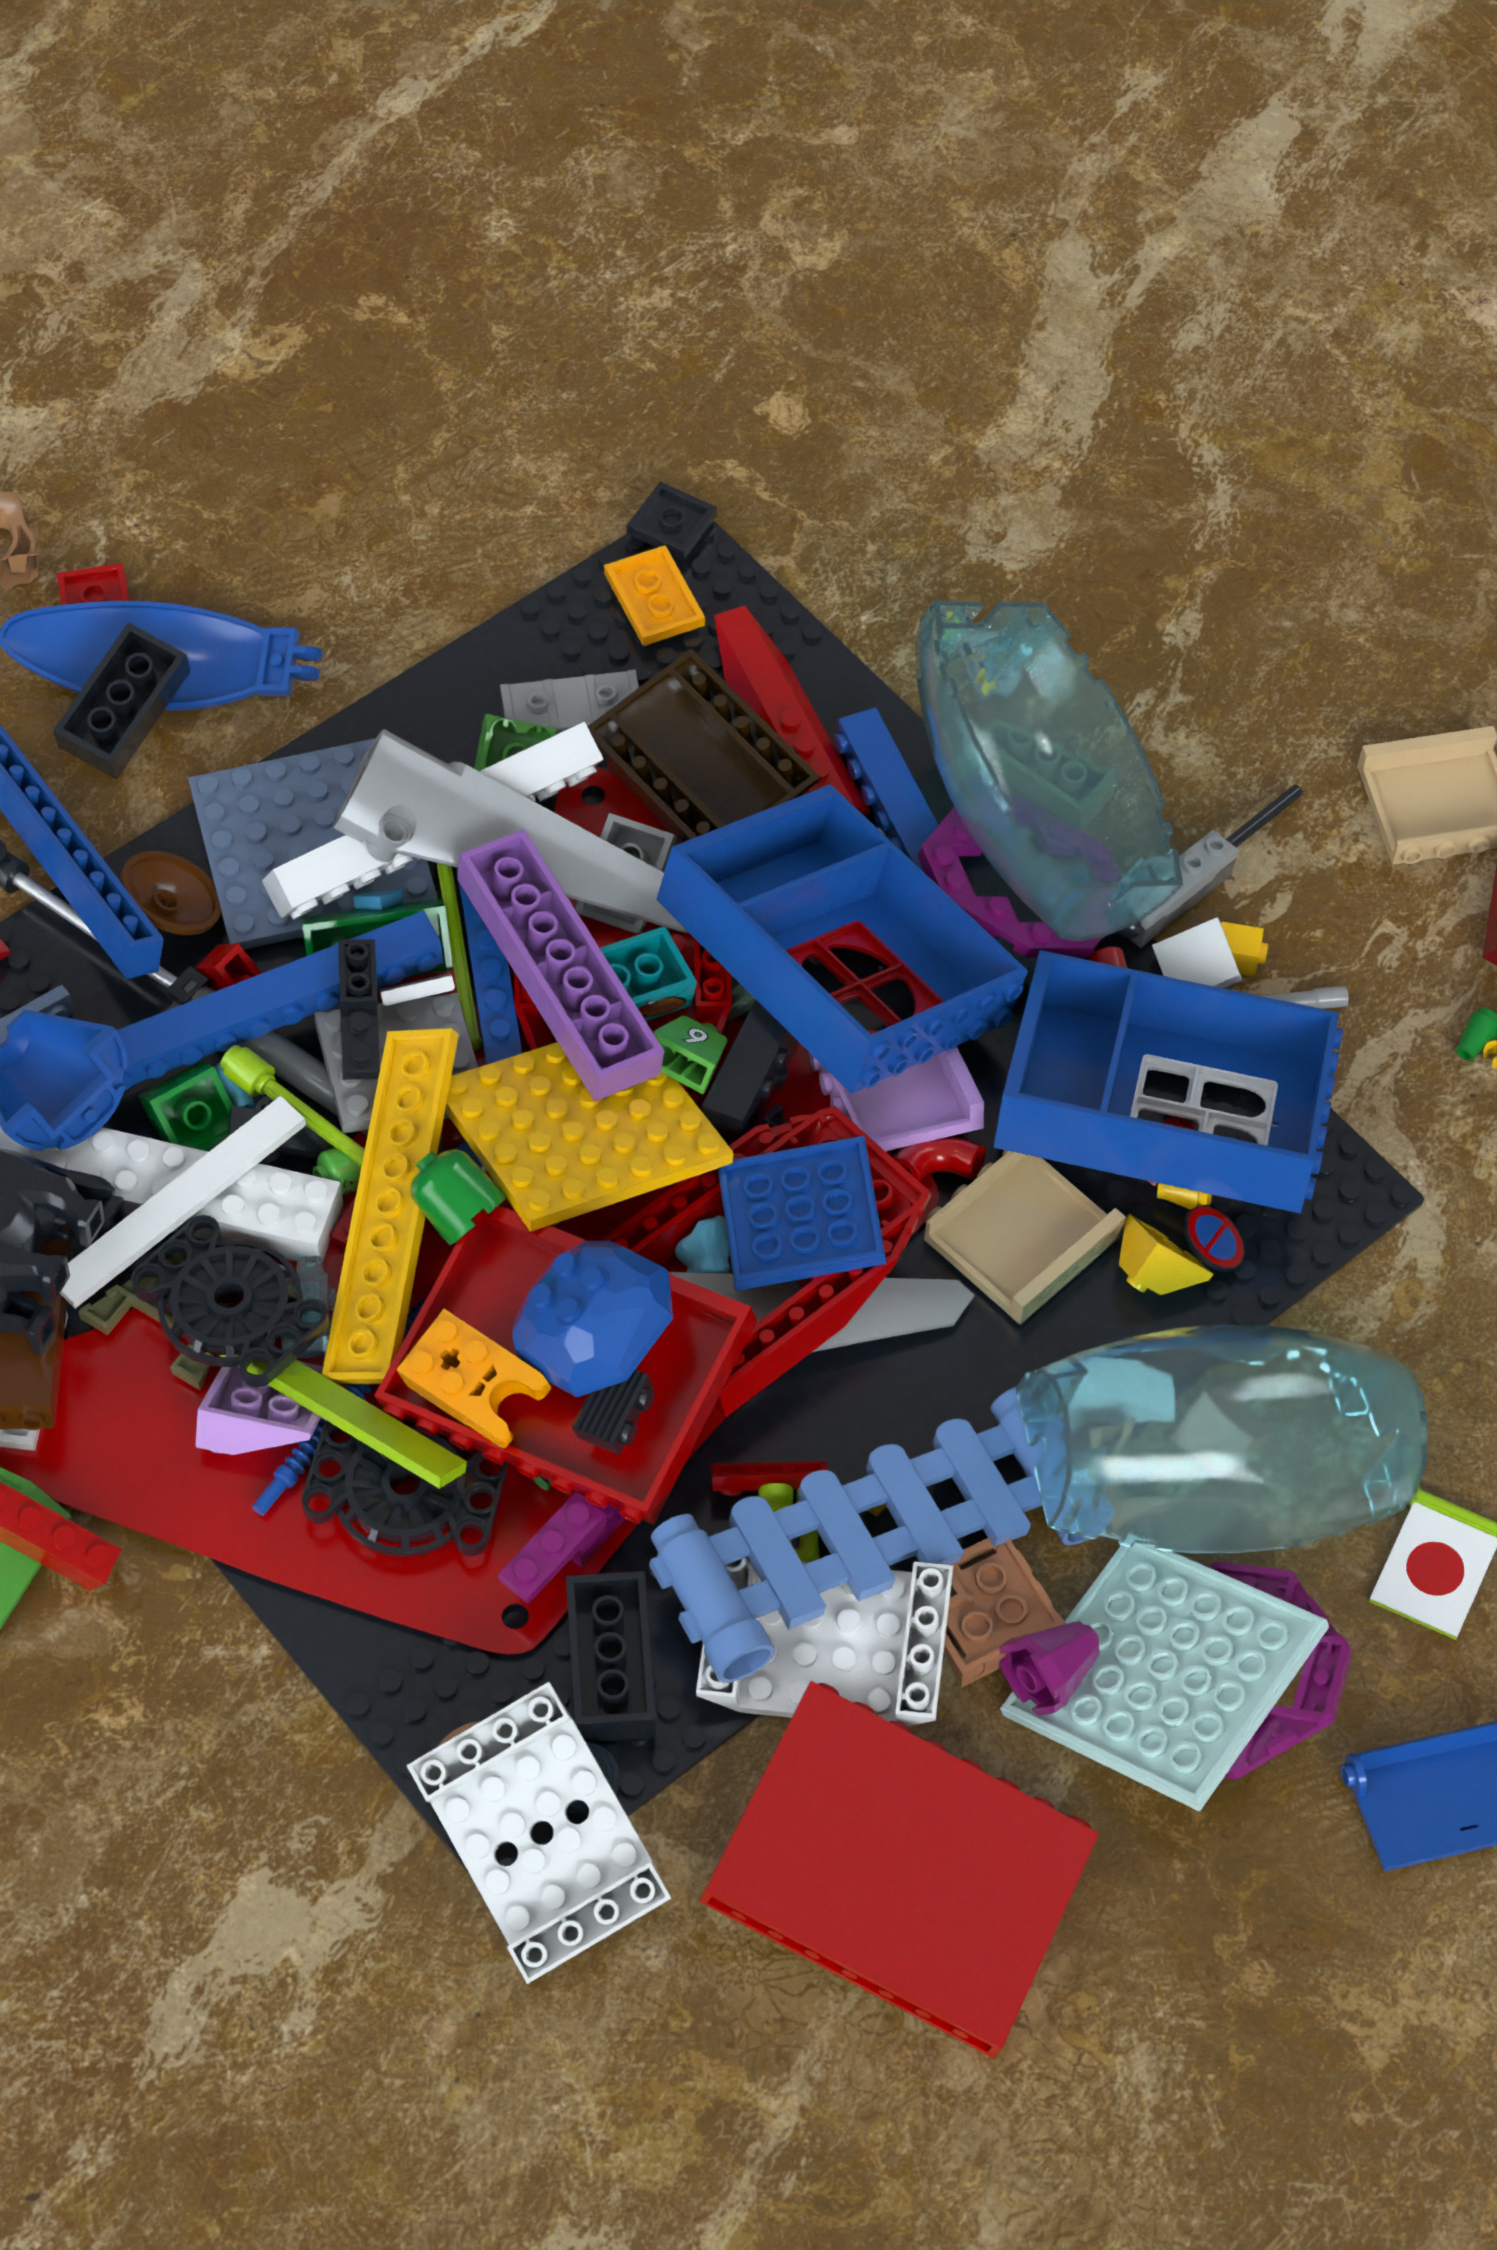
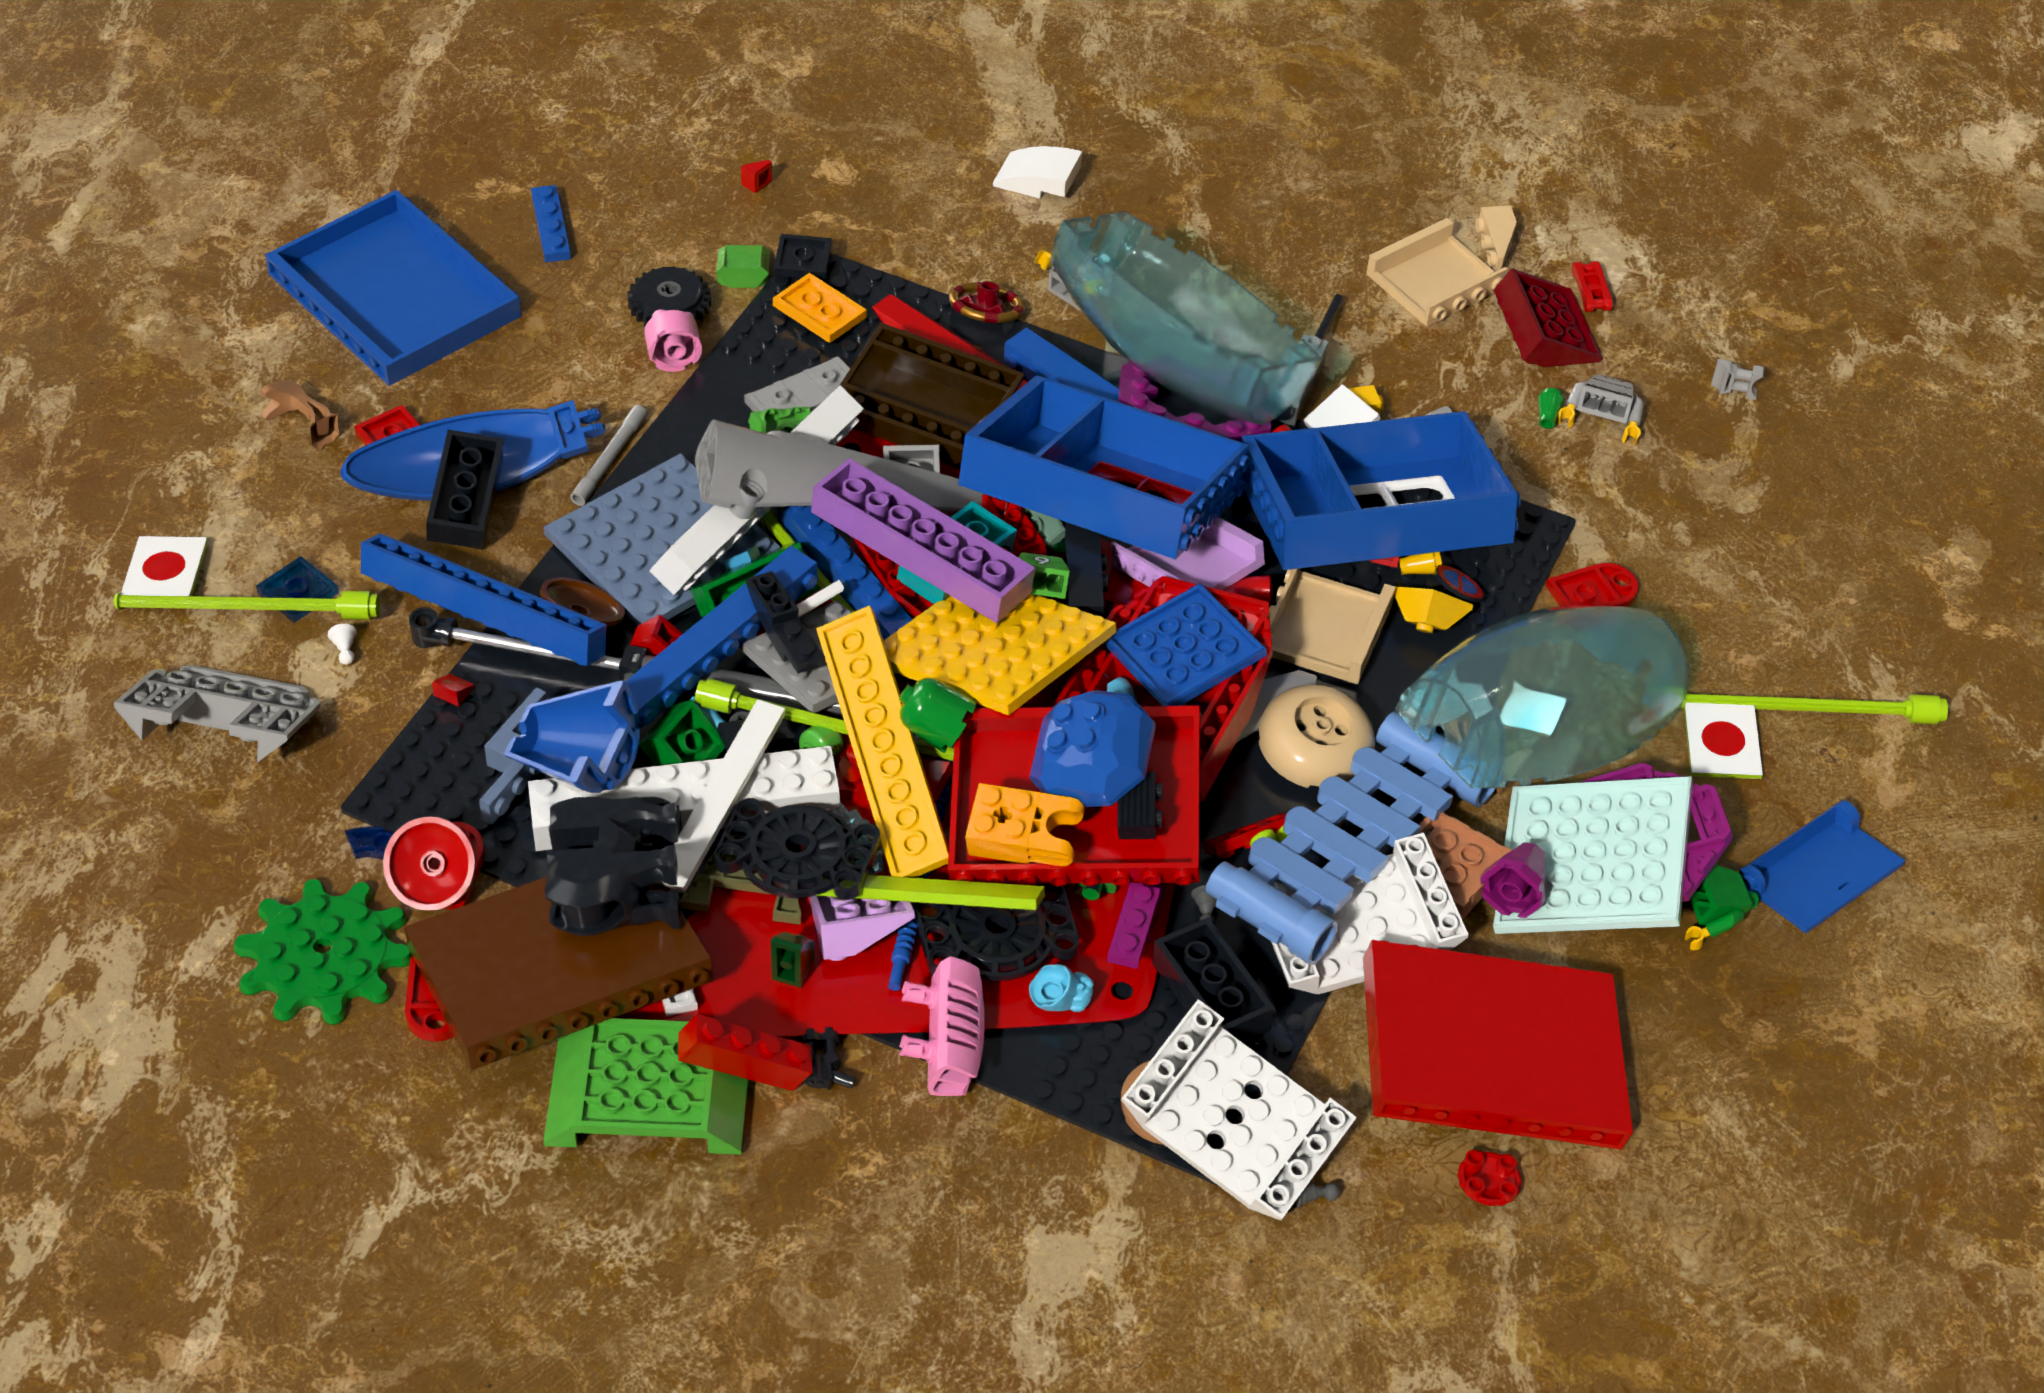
camera: 25 degrees left, 10 degrees down
(131, 1578) = (825, 1066): none -> black piece
(160, 1429) = (791, 958): none -> dark green slope
(194, 405) = (393, 286): none -> blue panel
(275, 735) = (588, 483): none -> light grey piece
(290, 1593) = (954, 1026): none -> bright pink piece
(414, 378) = (550, 223): none -> blue plate
(436, 1591) = (1060, 989): none -> medium azure hair
(459, 583) = (672, 340): none -> bright pink brick
(491, 524) = (669, 290): none -> black gear
(592, 1961) = (1313, 1192): none -> dark grey piece
(603, 506) = (743, 266): none -> bright green slope
(682, 390) = (756, 175): none -> red slope
(807, 2030) = (1489, 1178): none -> red dish
(858, 652) = (987, 304): none -> dark red piece
(879, 1388) = (1327, 742): none -> tan brick
(1024, 493) = (1039, 171): none -> white slope
(1293, 1790) = (1719, 904): none -> green torso
(1389, 1306) = (1594, 586): none -> red tile

